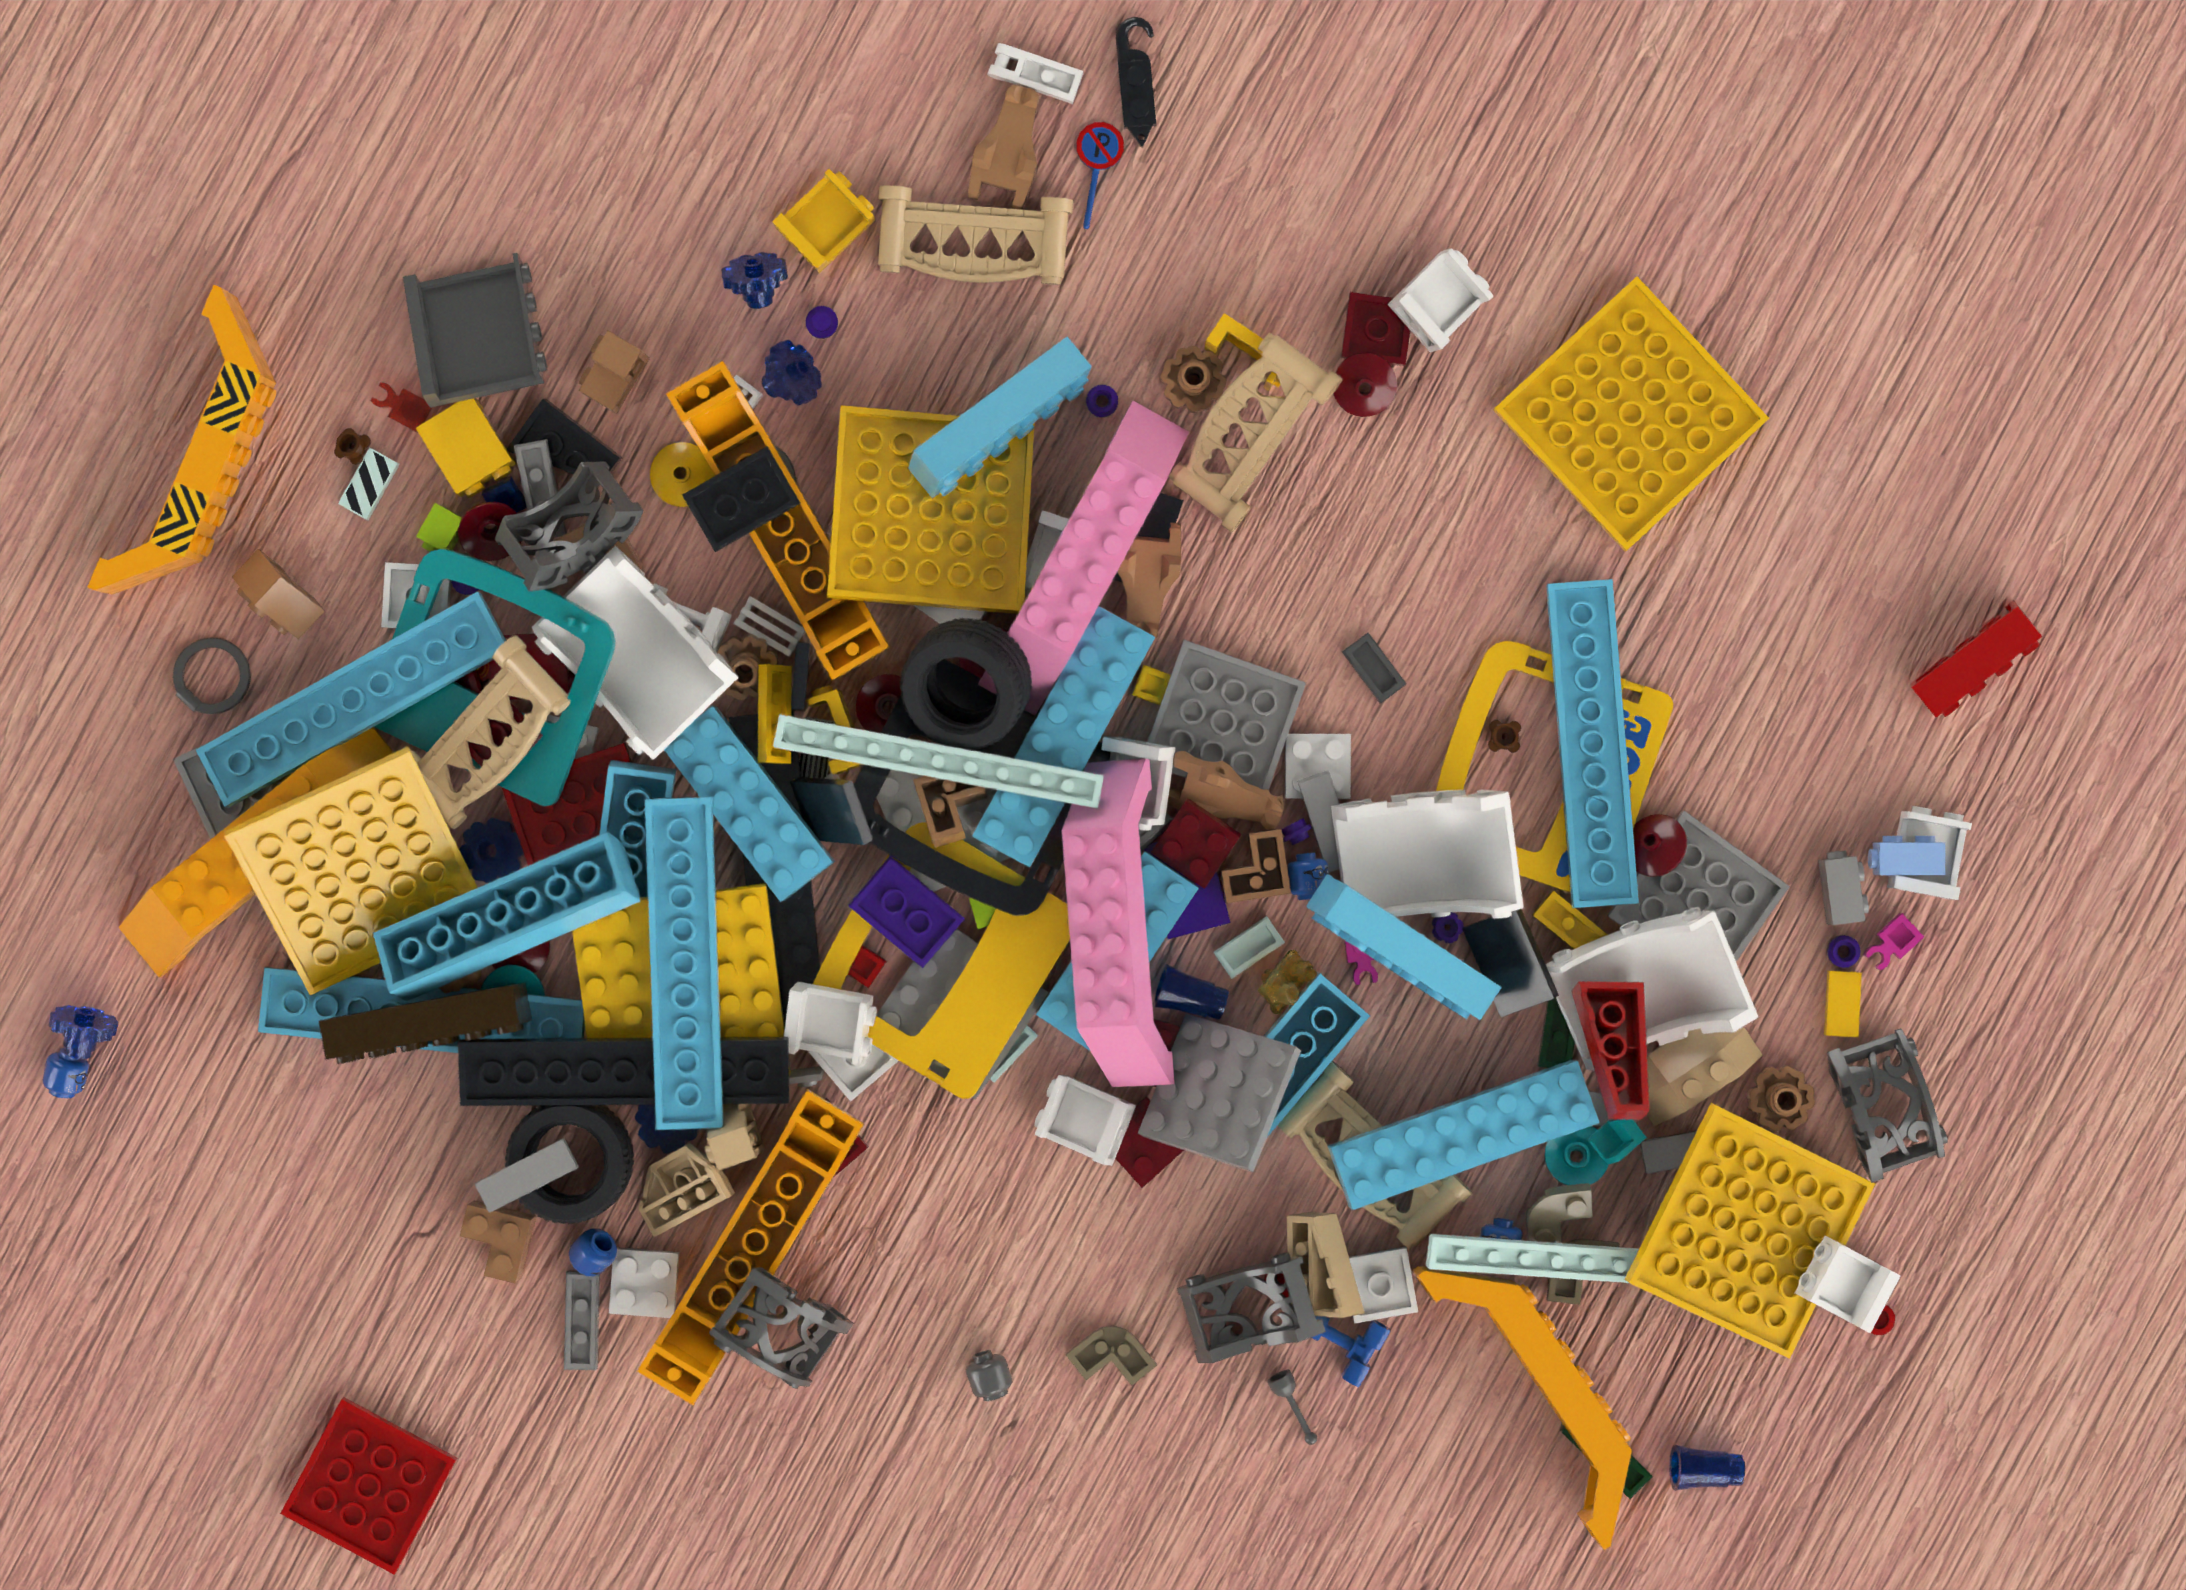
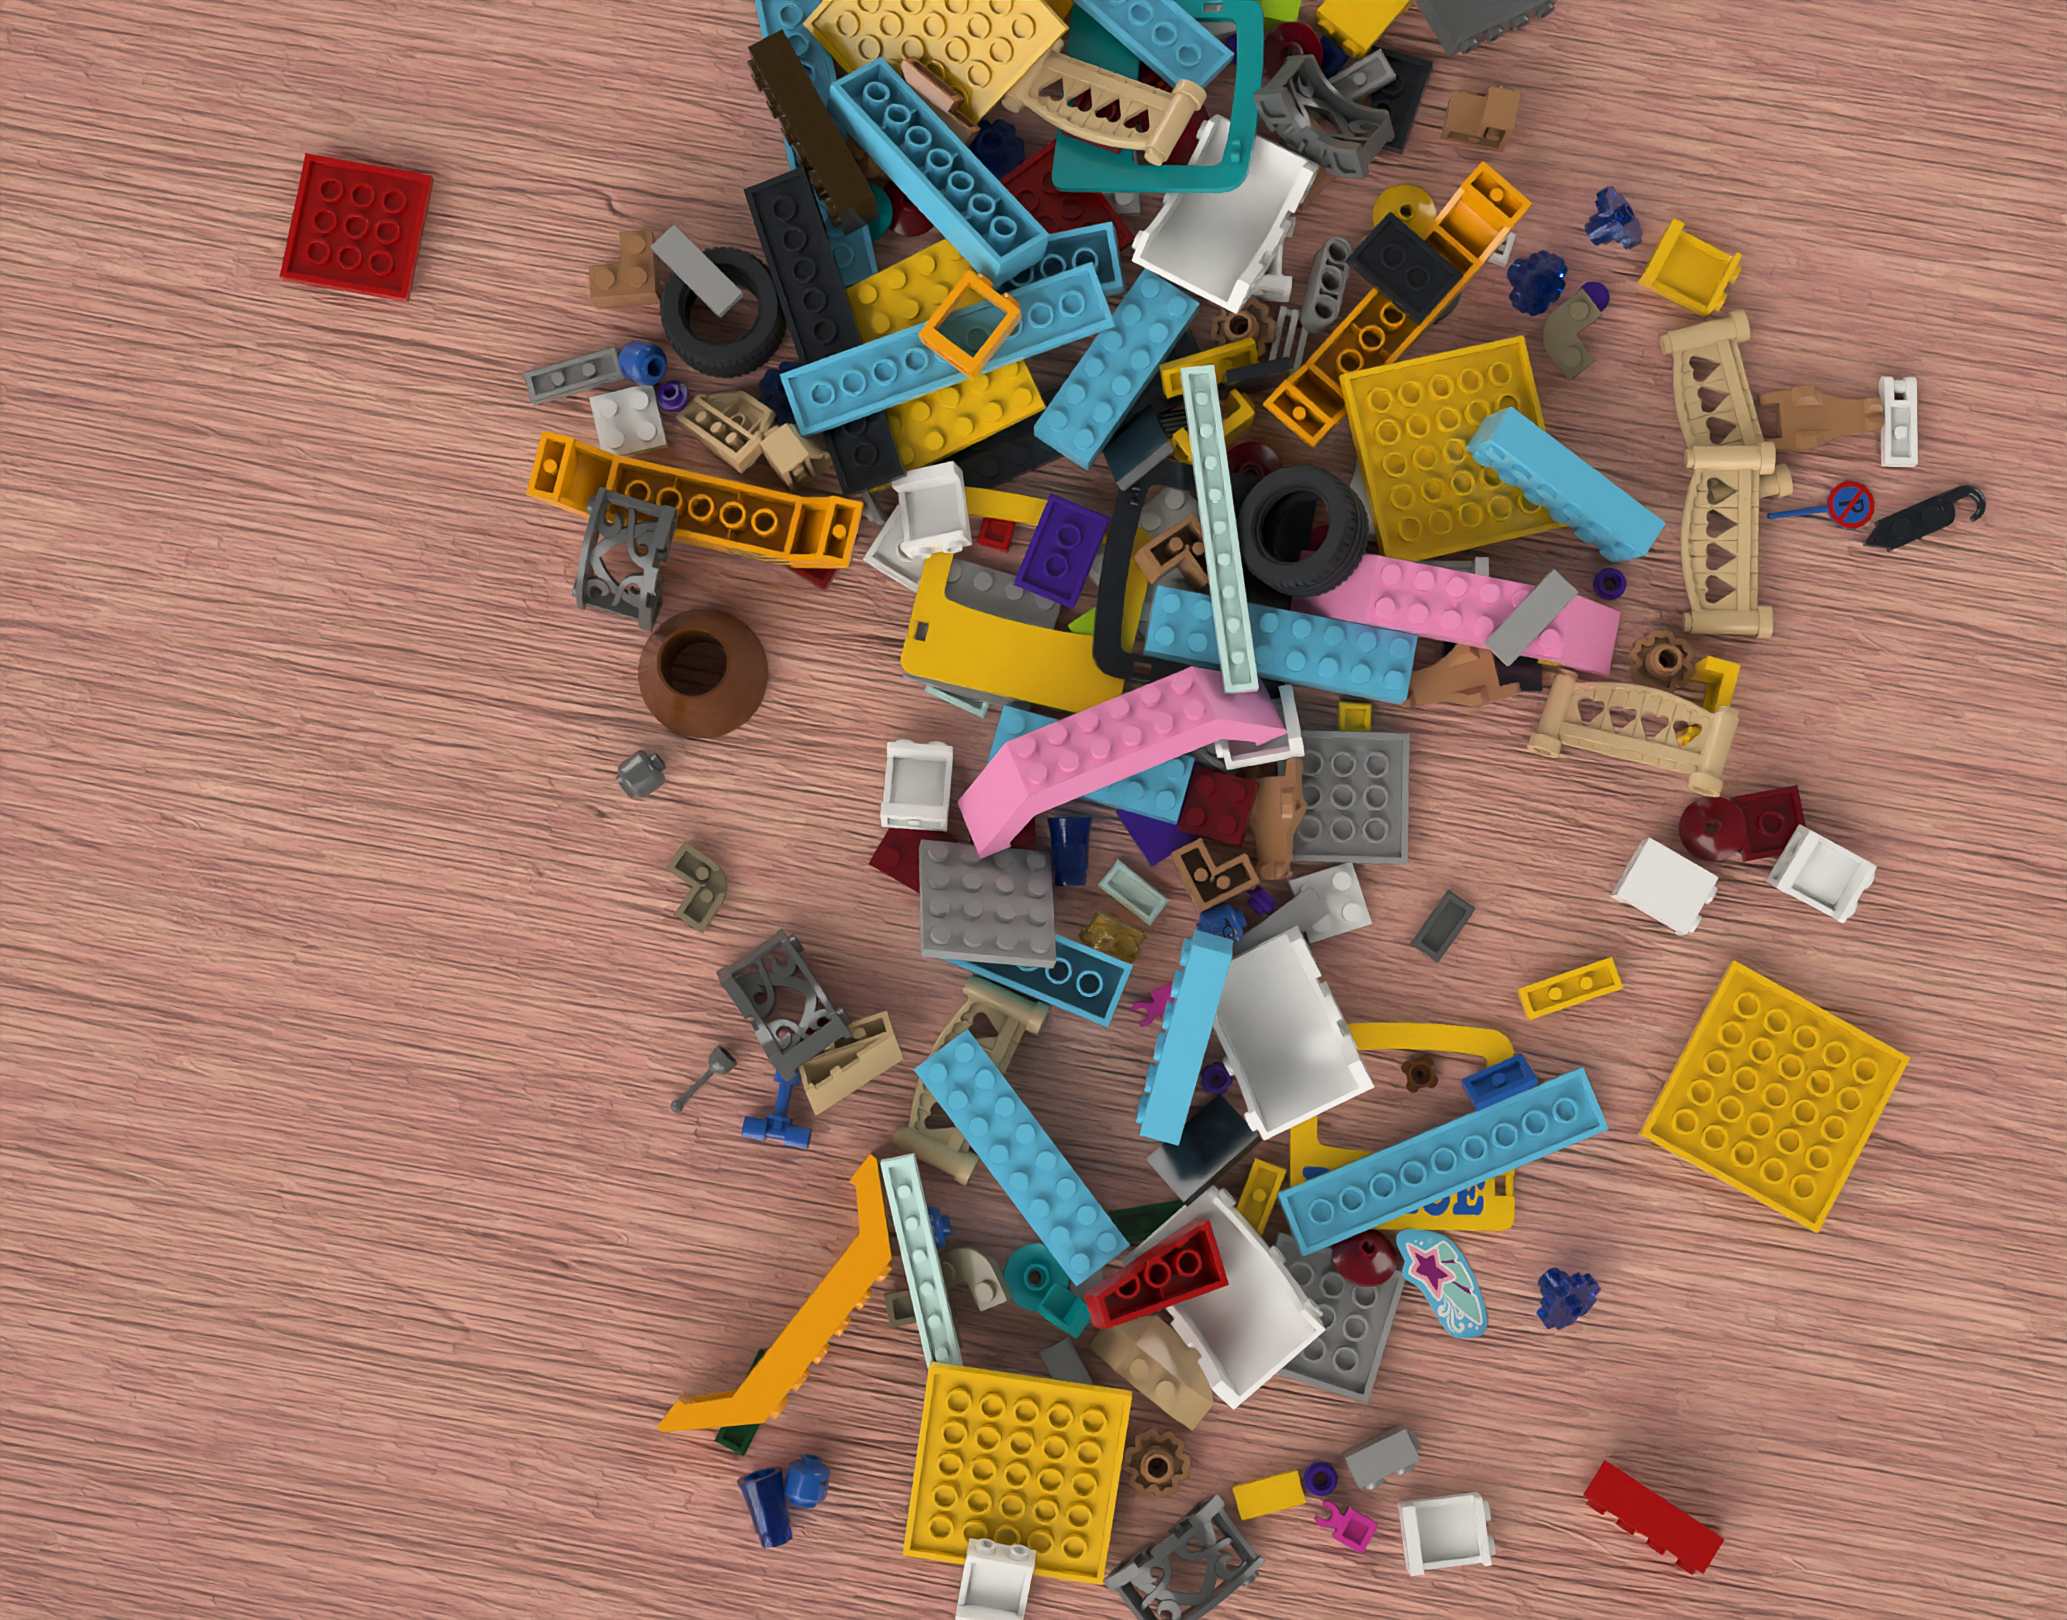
camera: 70 degrees right, 5 degrees down
(433, 889) = (940, 98): none -> nougat slope
(639, 1227) = (678, 401): none -> dark purple plate
(660, 896) = (949, 351): none -> light orange window
(737, 586) = (1317, 295): none -> light grey beam
(848, 365) = (1561, 333): none -> dark tan plate
(916, 1245) = (730, 701): none -> reddish brown cone
(1119, 499) = (1530, 617): none -> light grey tile
(1167, 289) = (1740, 470): none -> tan piece
(1384, 1284) = (848, 1128): white plate -> none
(1405, 448) = (1666, 886): none -> white panel
(1470, 569) = (1569, 988): none -> yellow plate
(1536, 666) = (1499, 1082): none -> blue plate
(1695, 1425) = (807, 1481): none -> blue head
(1701, 777) = (1445, 1280): none -> sticker
(1753, 672) = (1565, 1297): none -> clear blue plant
(1907, 858) = (1435, 1512): light blue brick -> none

